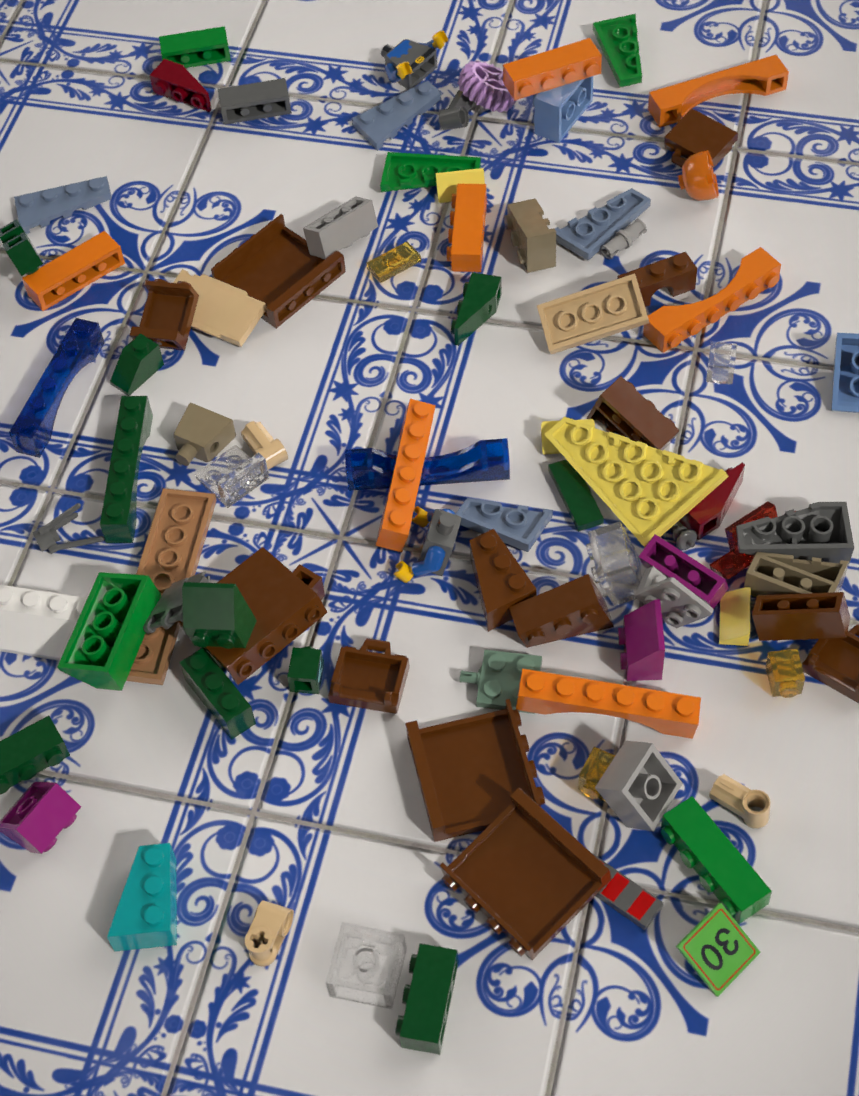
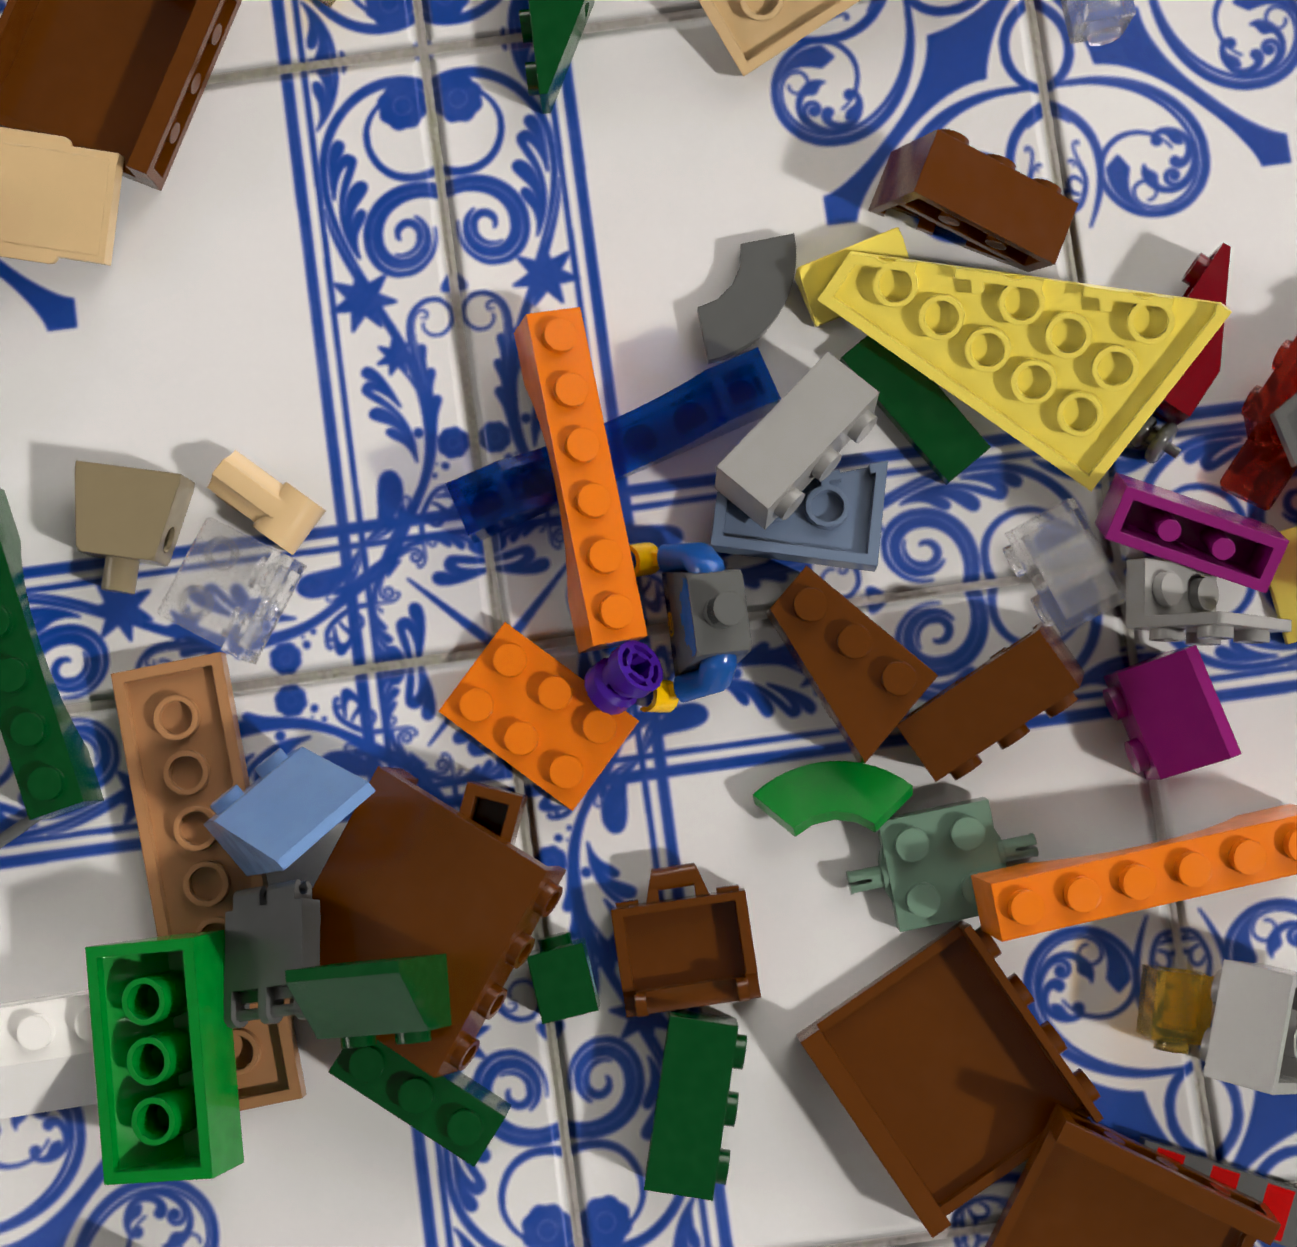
camera: 20 degrees left, 30 degrees up
(213, 553) = (284, 810): none -> medium blue slope
(342, 741) = (694, 1105): none -> dark green brick
(345, 566) = (537, 716): none -> orange plate
(388, 554) = (630, 671): none -> dark purple wheel
(469, 633) = (833, 792): none -> green tile
(511, 484) = (797, 441): none -> light grey brick
(521, 431) = (752, 300): none -> dark grey tile

